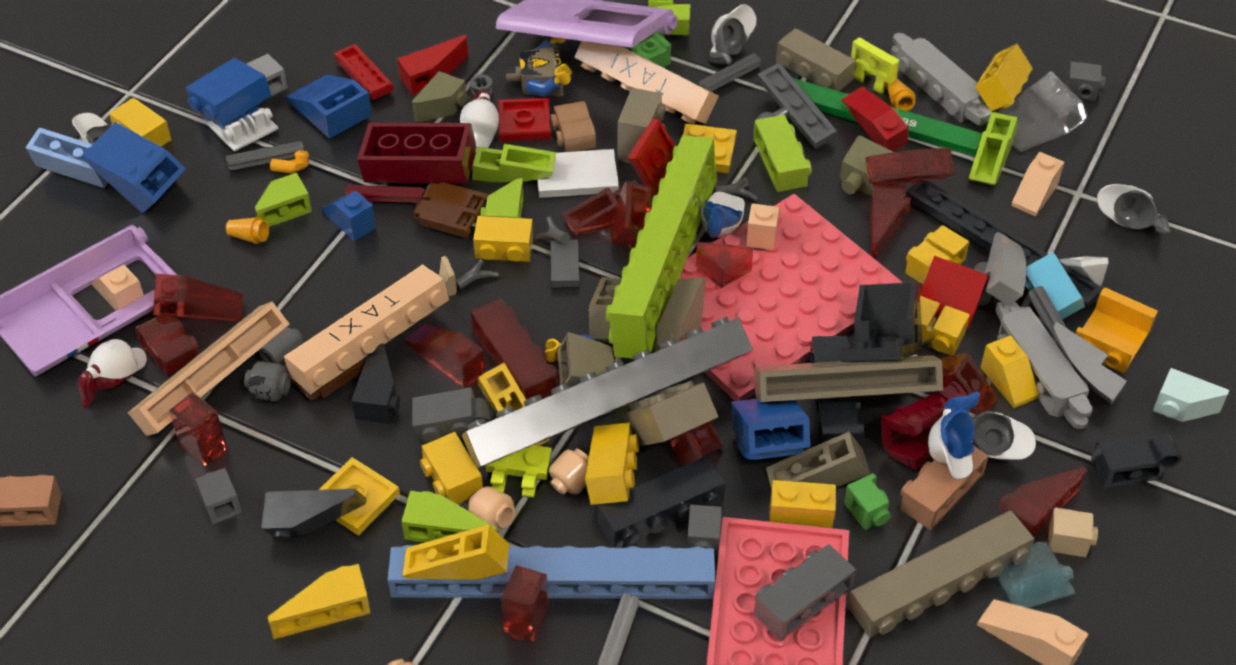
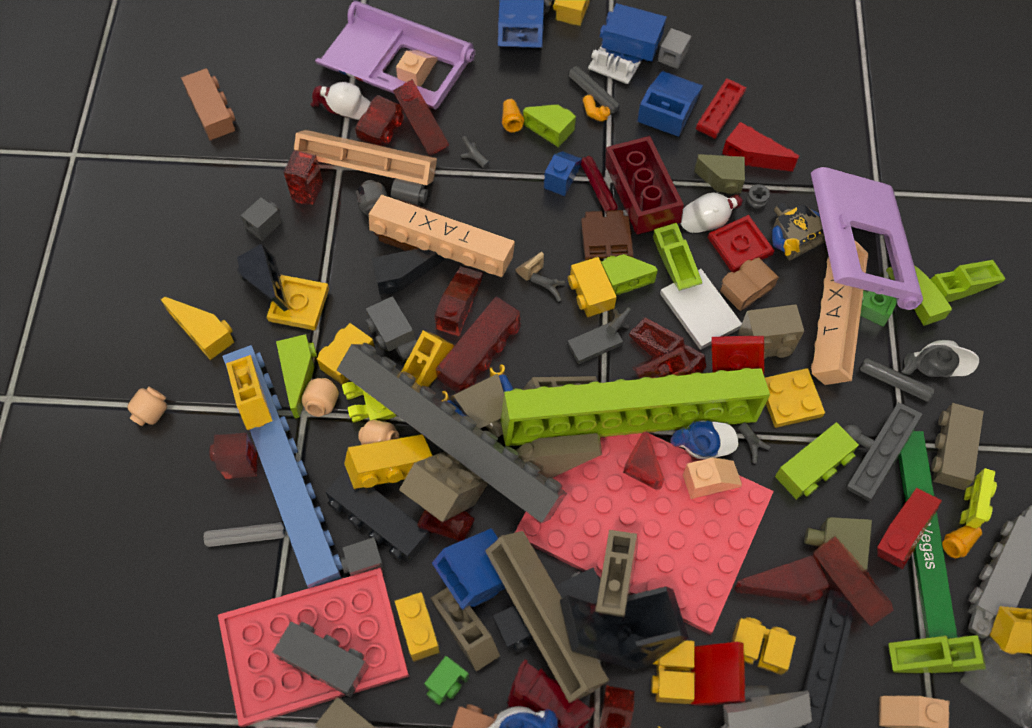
camera: 65 degrees right, 15 degrees up
(272, 278) = (474, 153): none -> dark grey bar
(828, 314) = (617, 573): none -> dark tan slope

